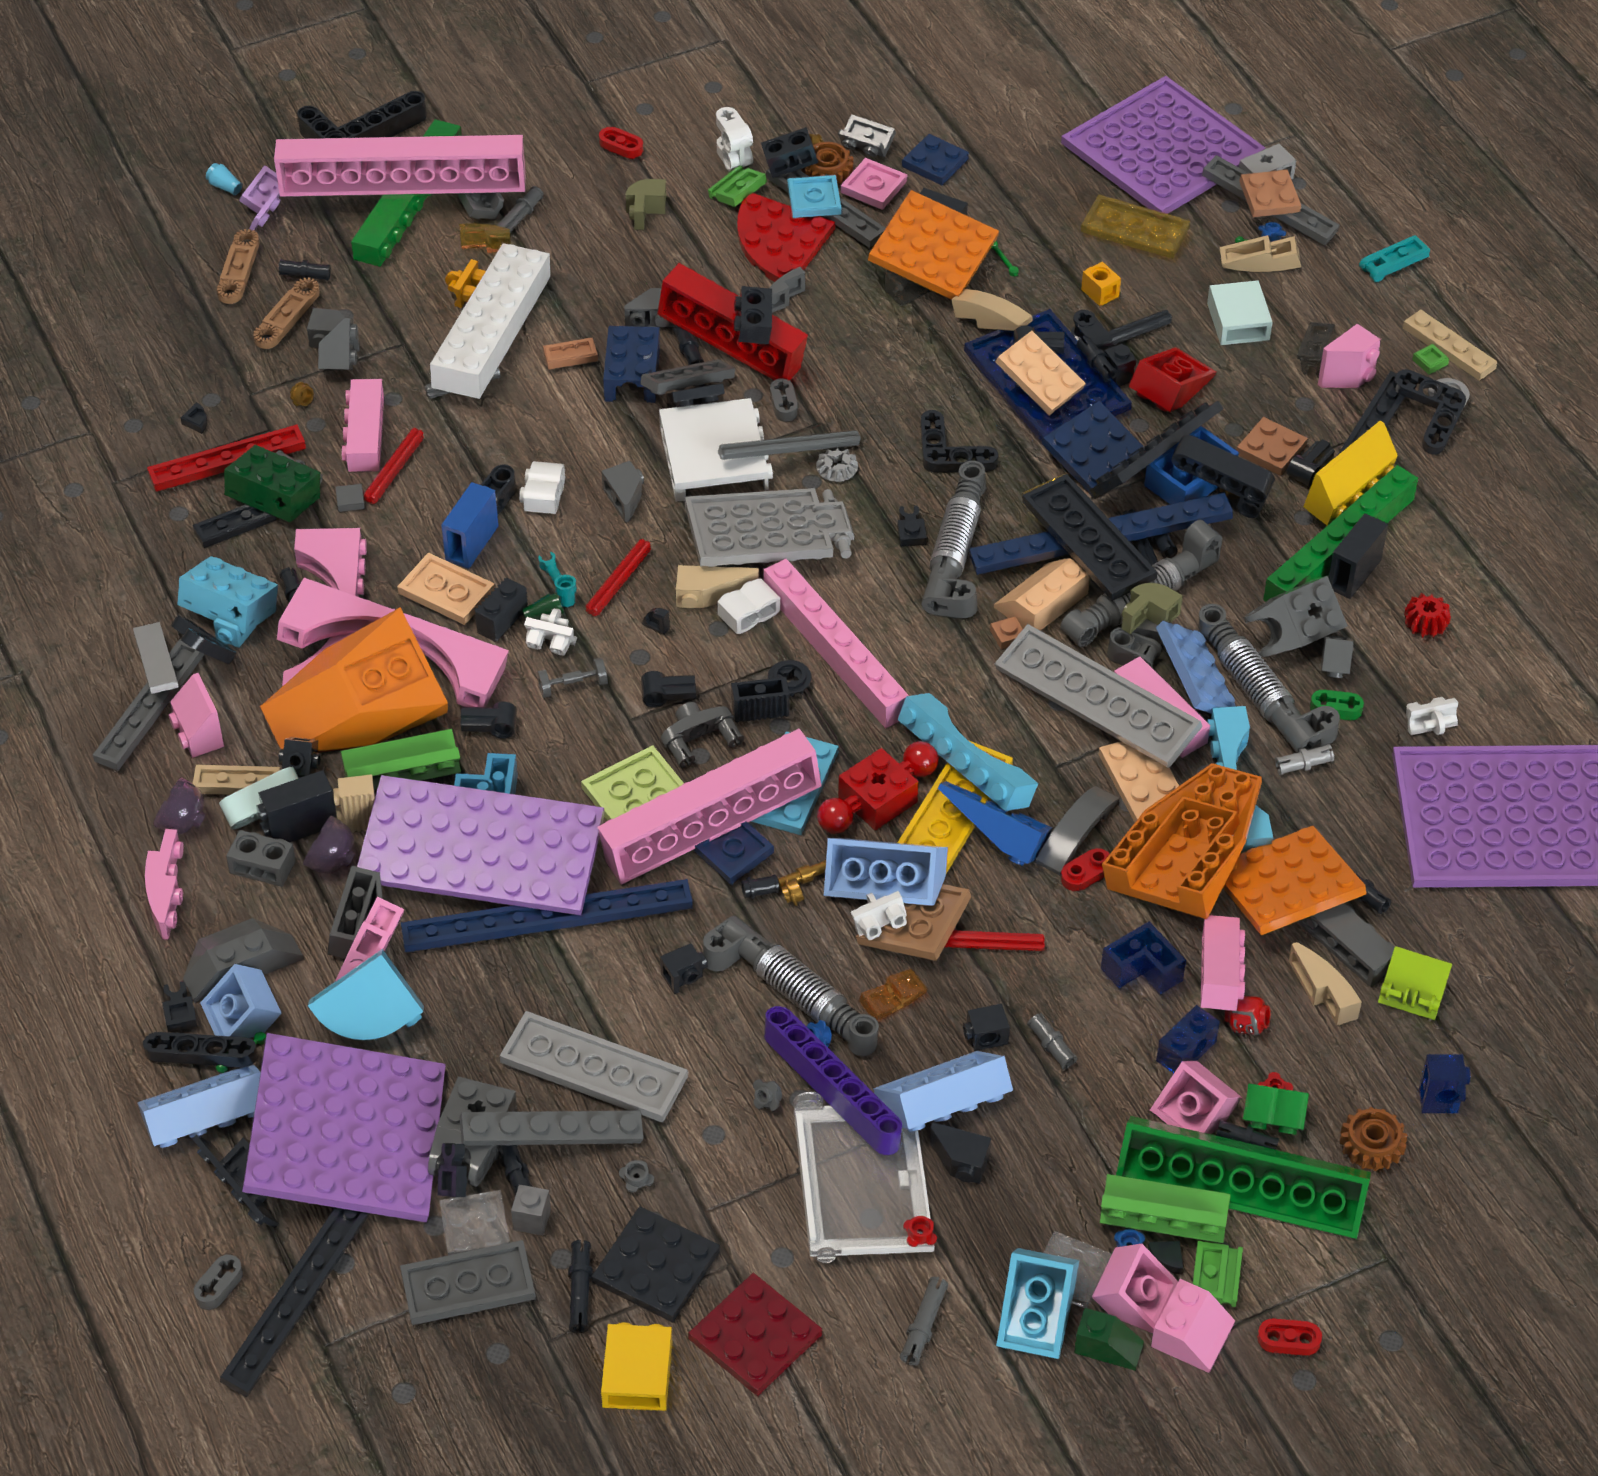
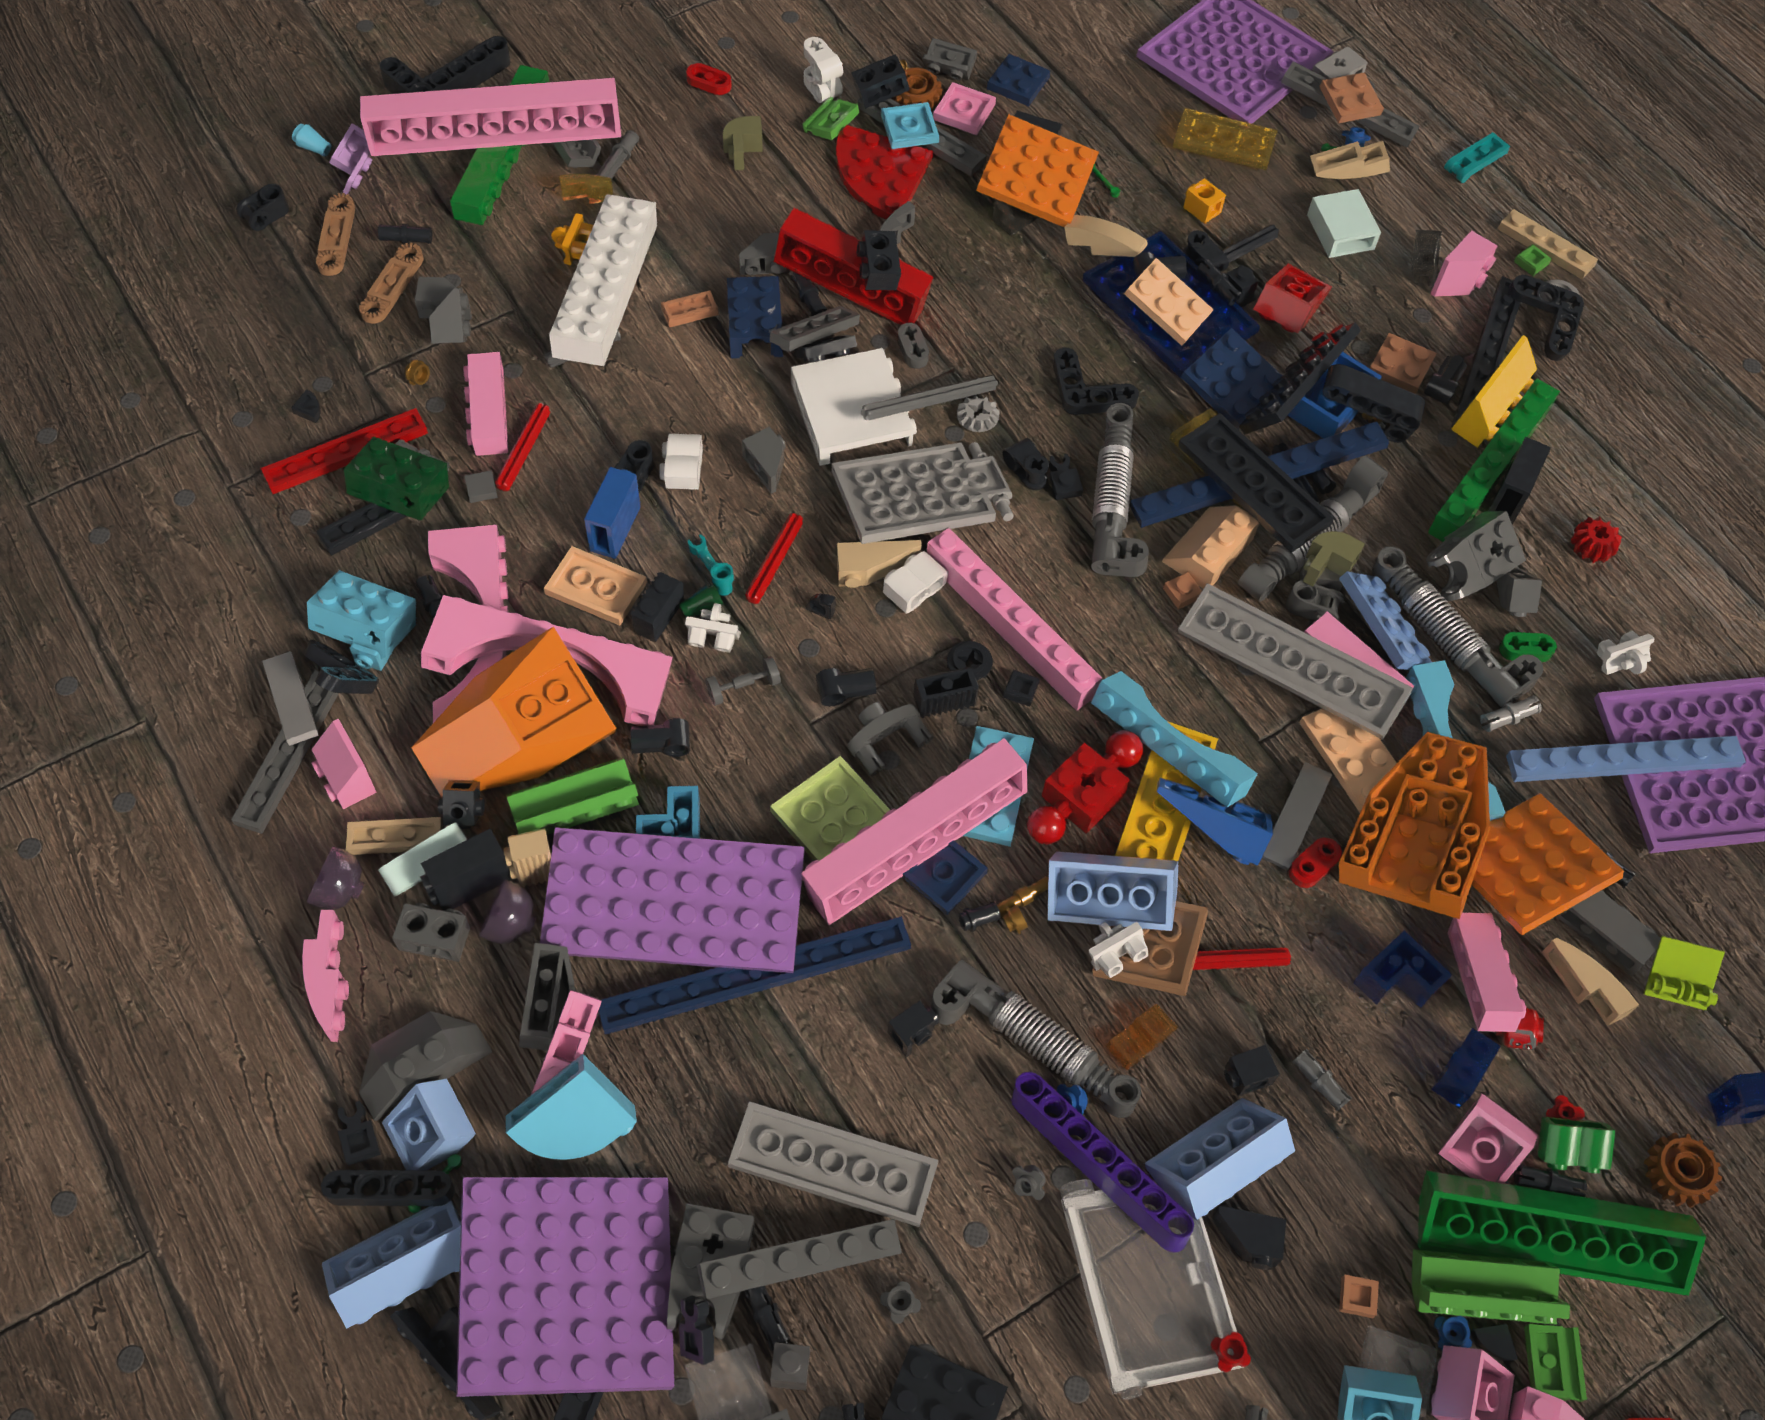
camera: 10 degrees left, 10 degrees up
(173, 238) = (265, 206): none -> black piece
(835, 704) = (1021, 688): none -> black tile
(876, 511) = (1027, 463): none -> black piece
(1048, 1208) = (1359, 1296): none -> nougat plate
(1404, 802) = (1625, 758): none -> medium blue plate

